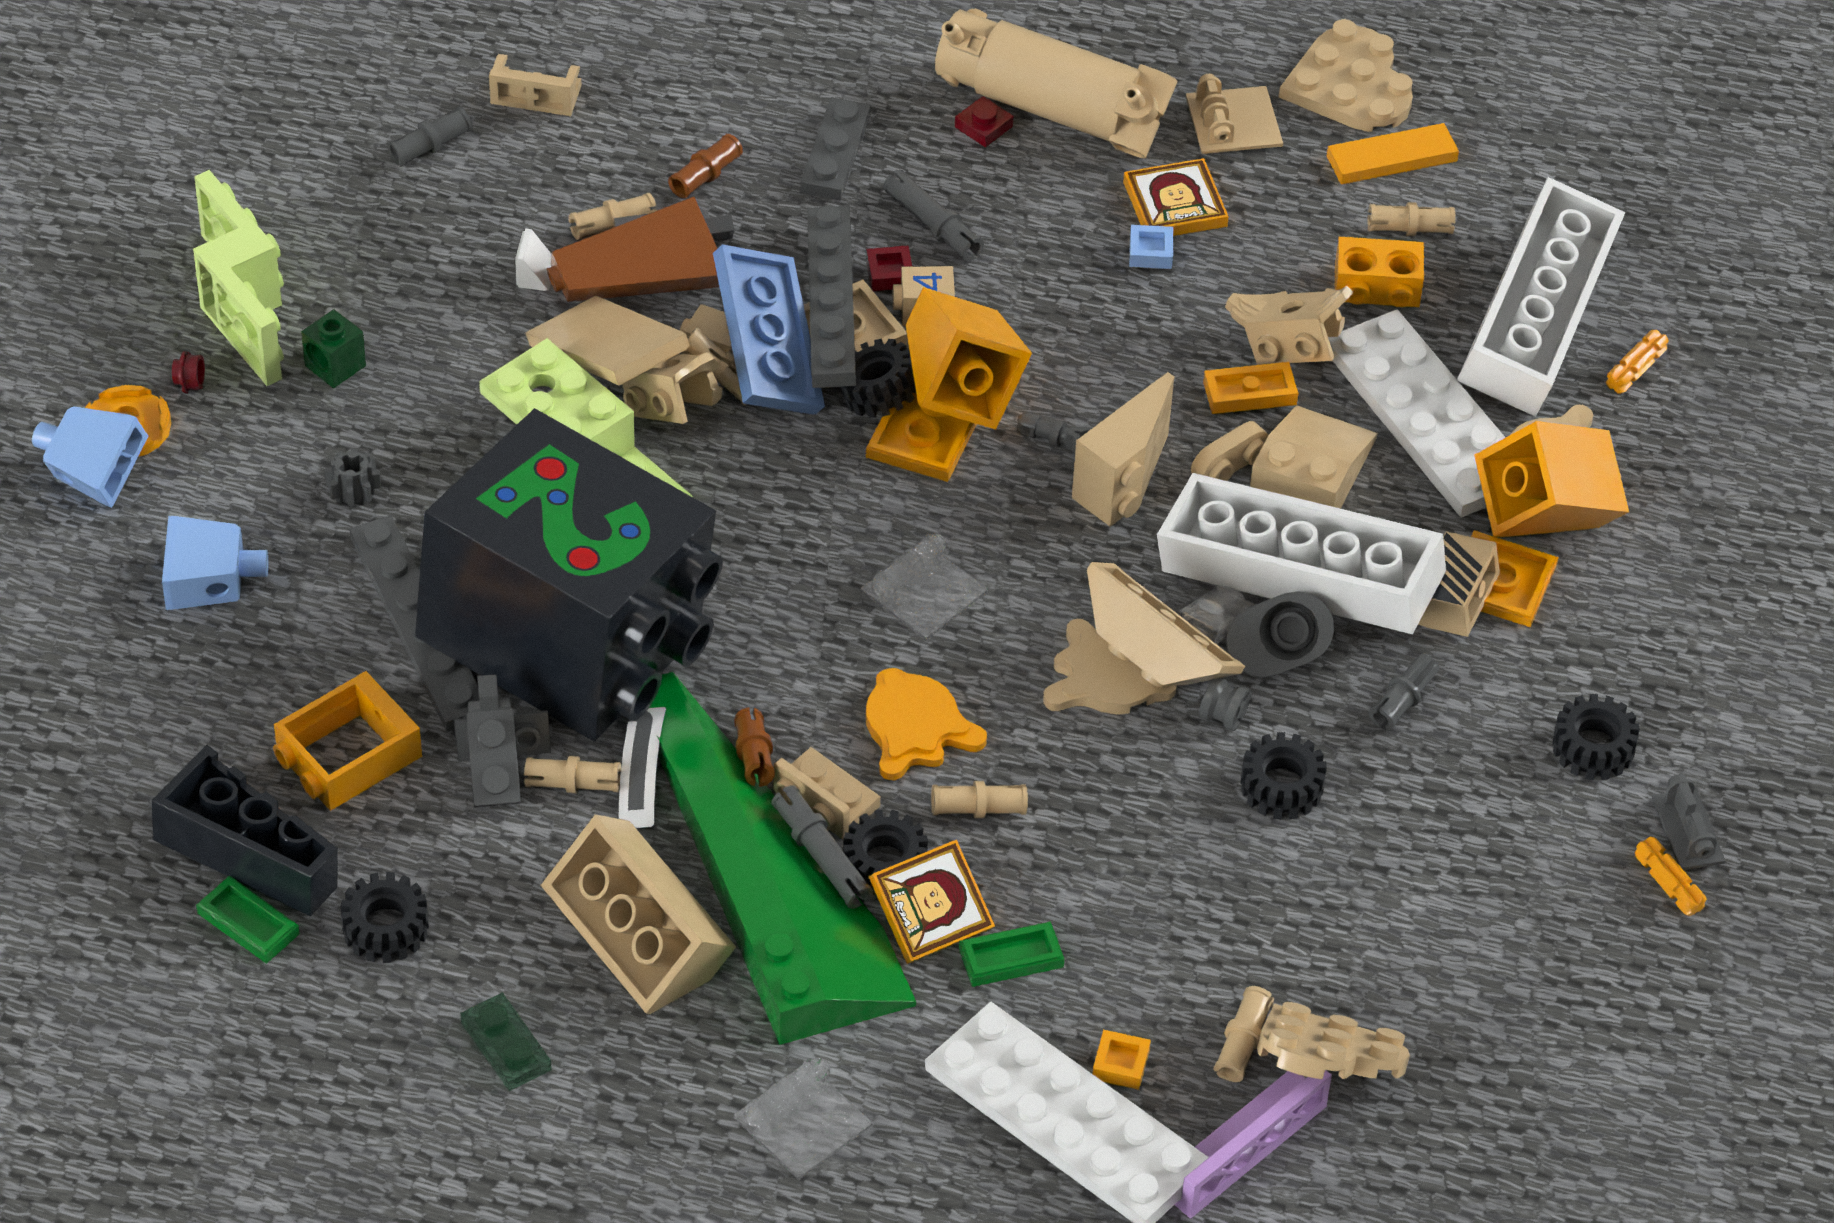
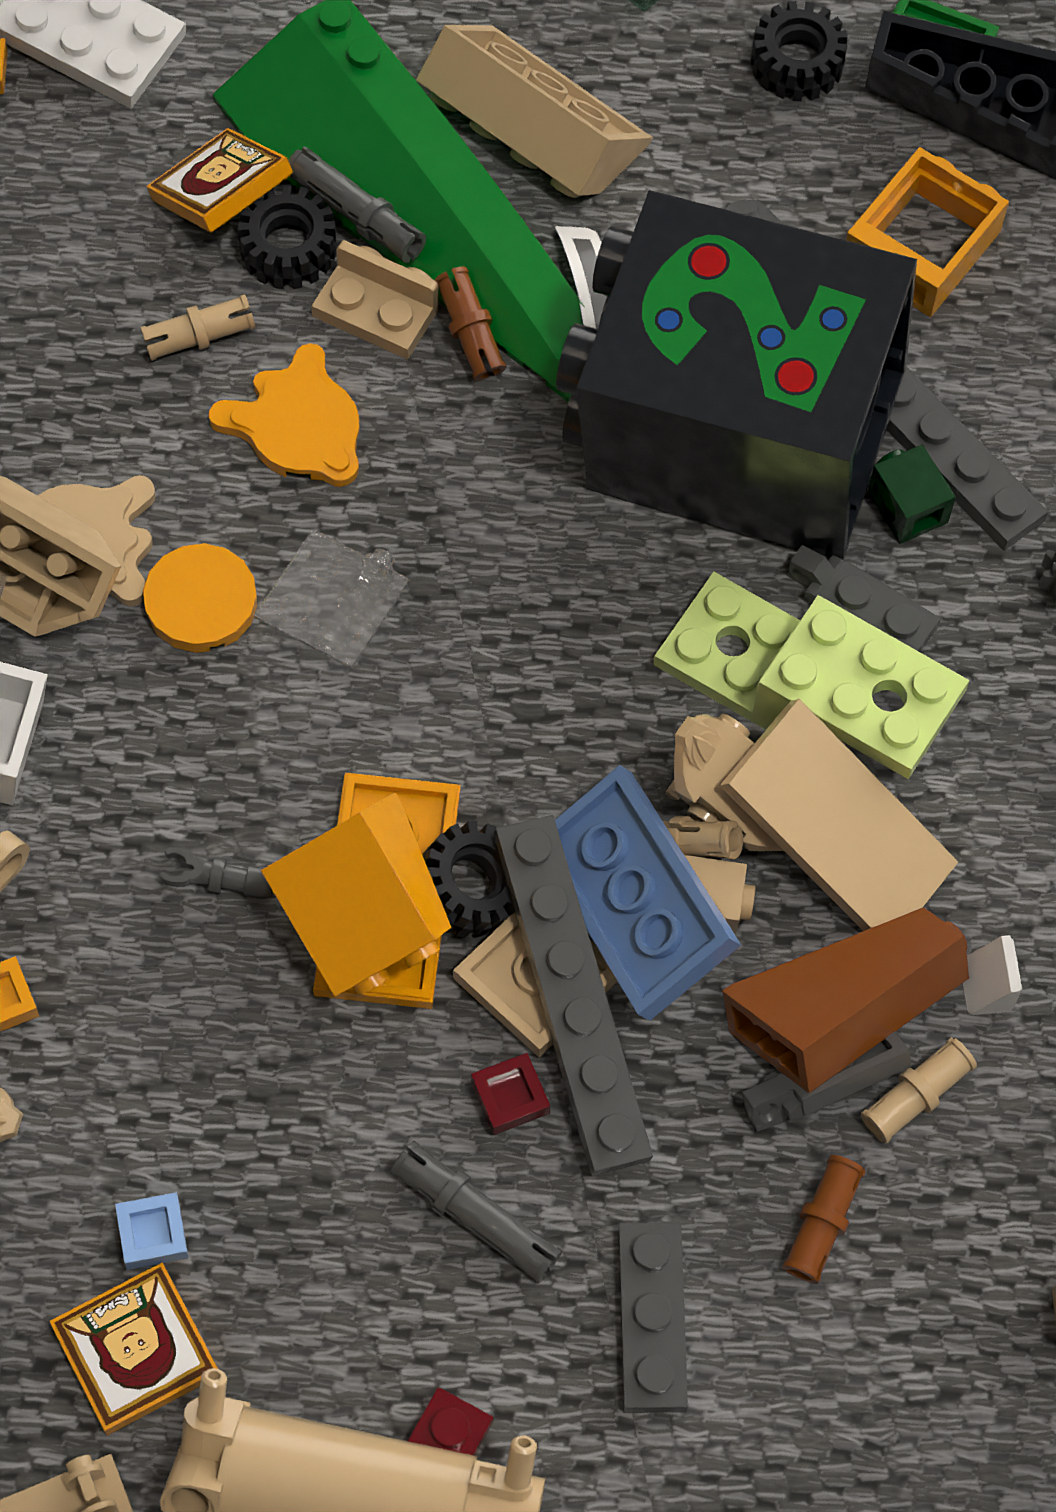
camera: 165 degrees right, 15 degrees up
(914, 279) = (446, 1046): tan brick -> none
(1011, 954) = (120, 167): green tile -> none
(1026, 611) = (200, 597): none -> light orange tile
(1121, 454) = (119, 800): tan slope -> none

